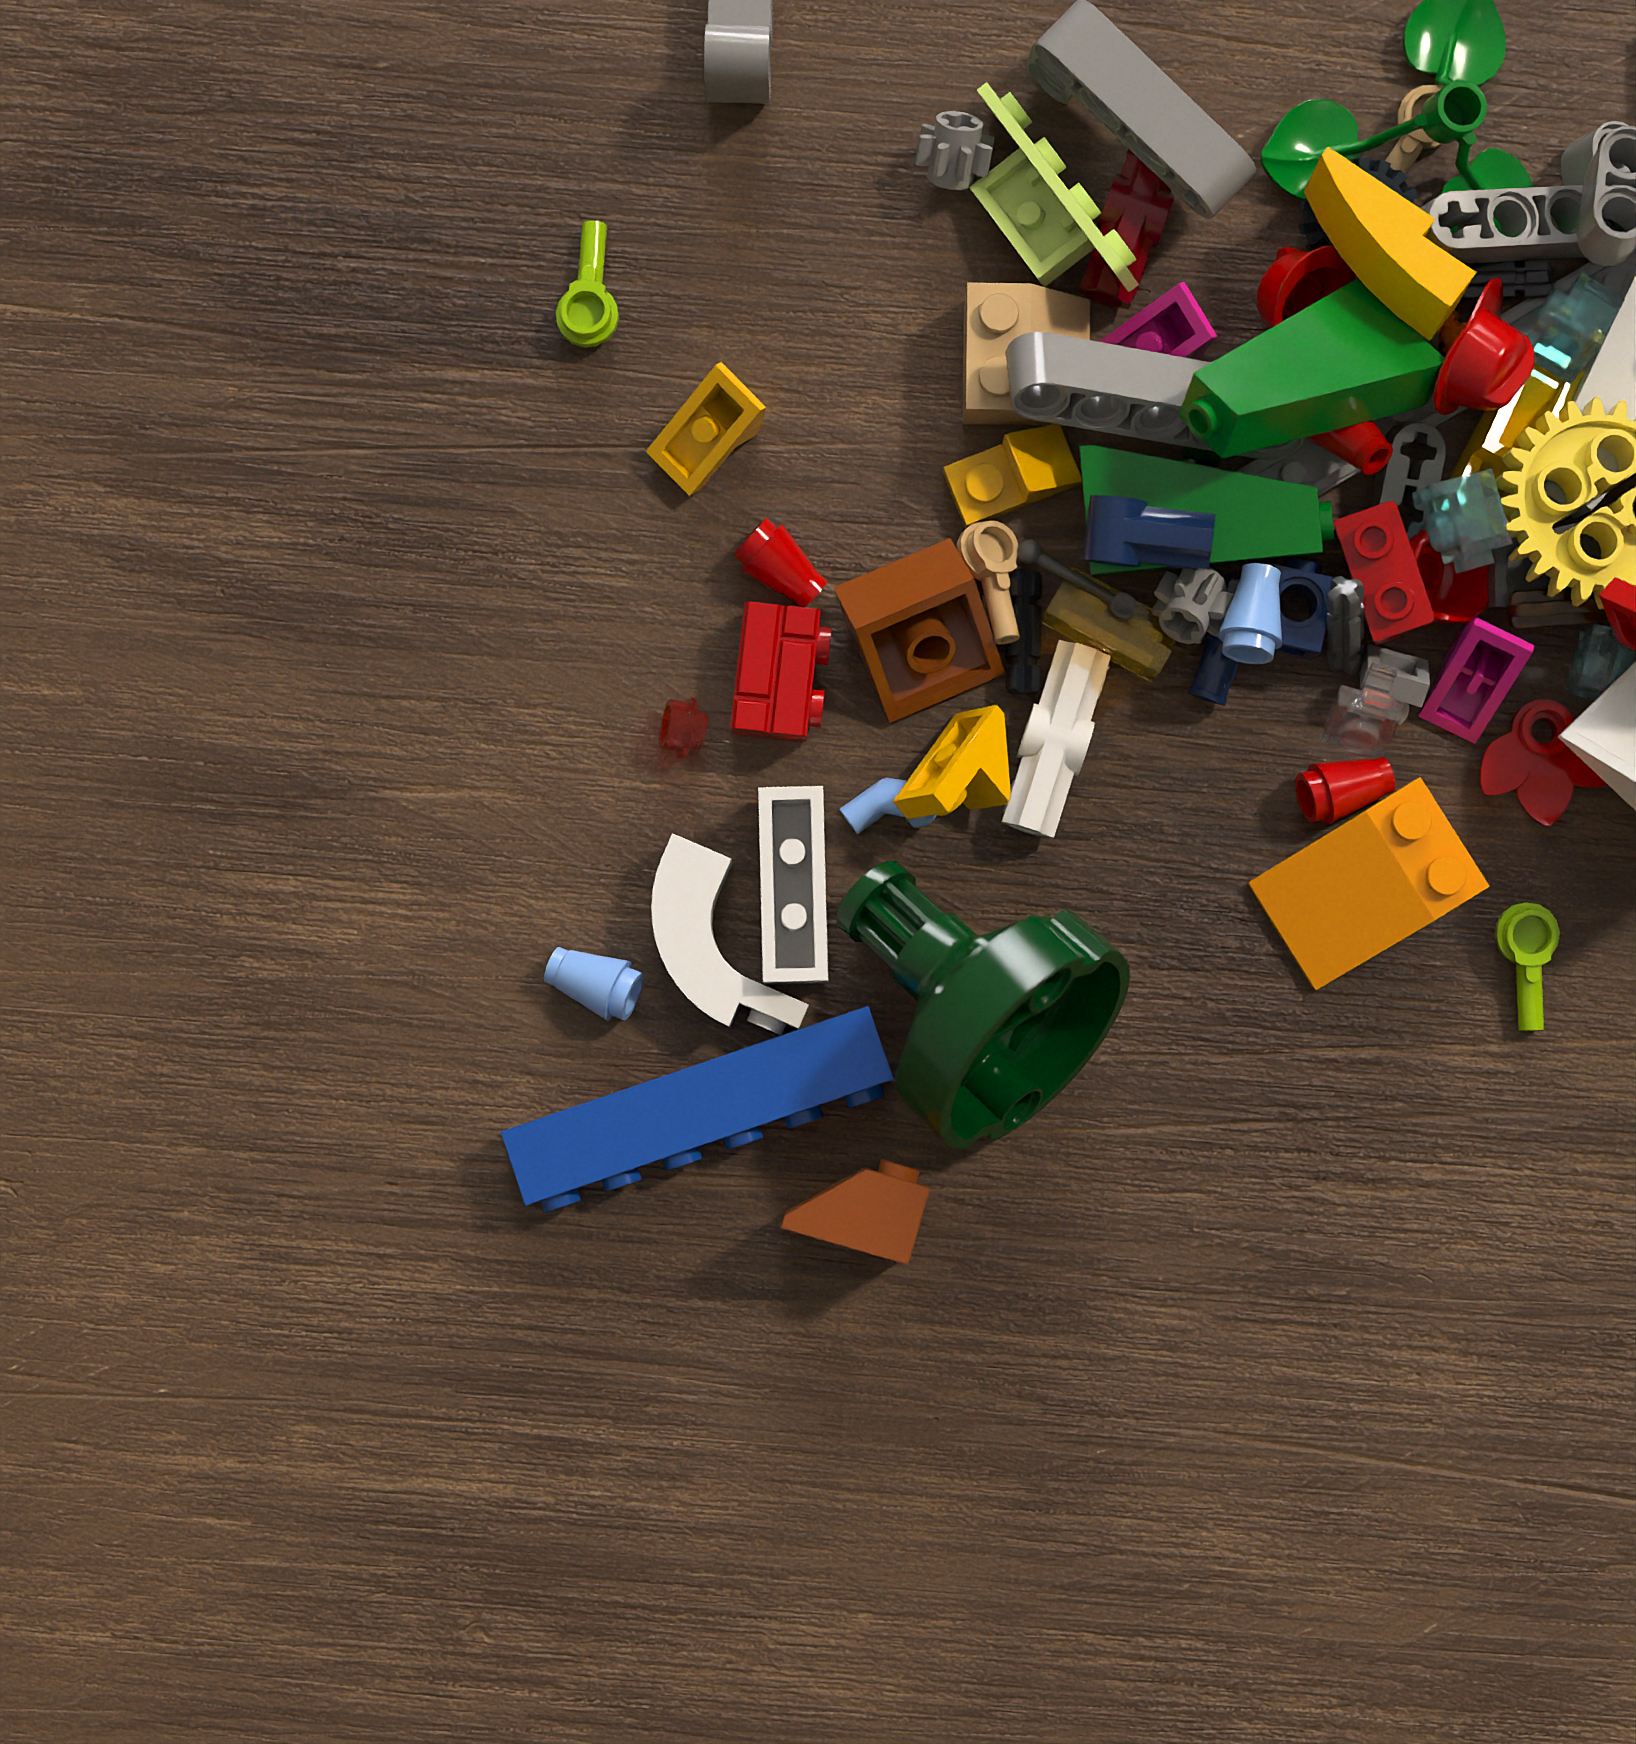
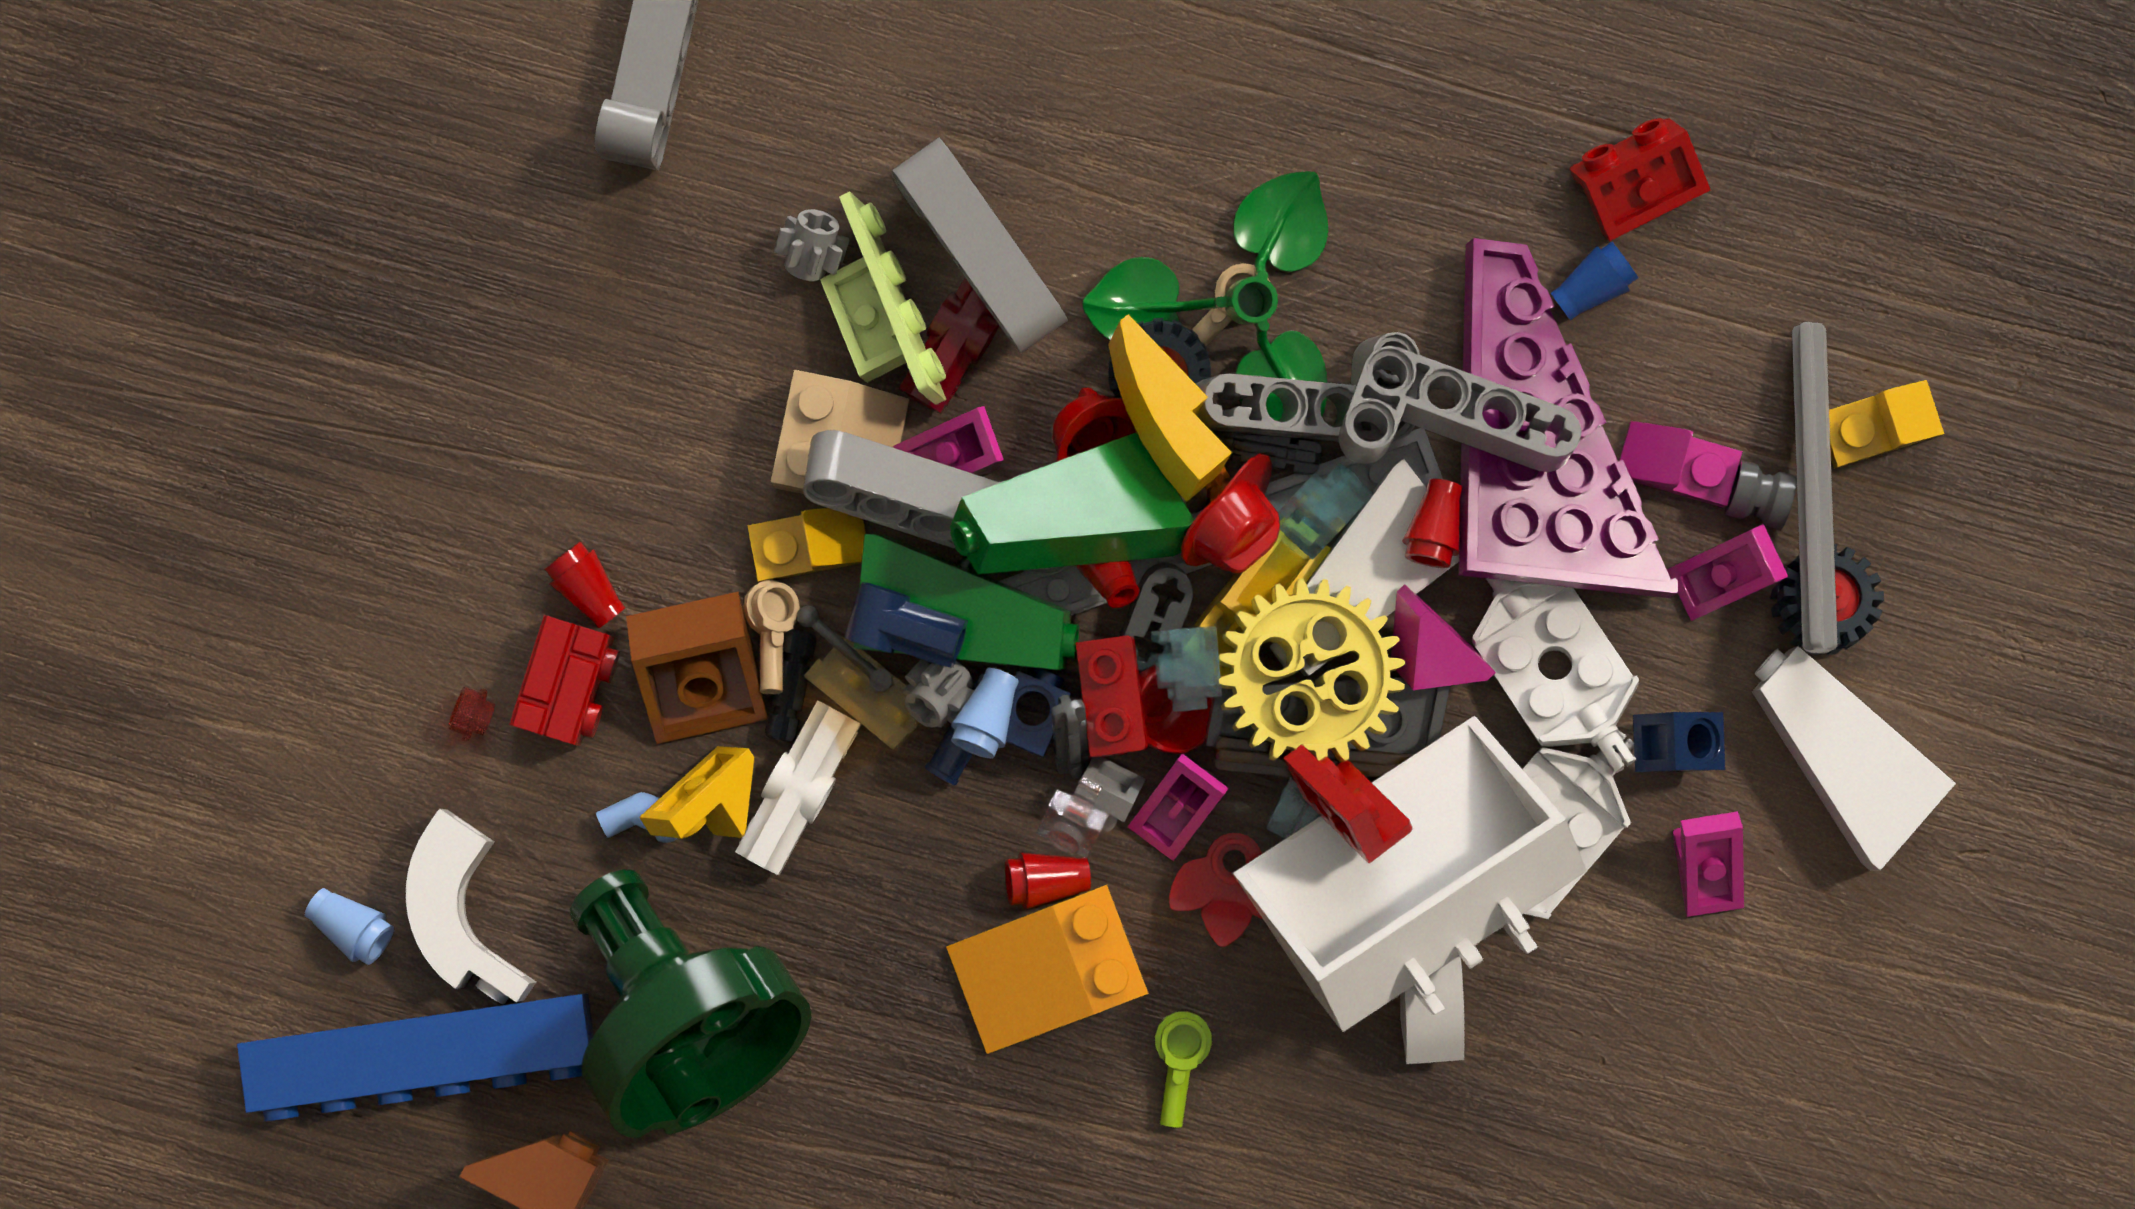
camera: 15 degrees right, 0 degrees up
(587, 311) = (459, 325): lime plate -> none
(707, 429) = (541, 455): yellow slope -> none
(793, 885) = (537, 875): white brick -> none

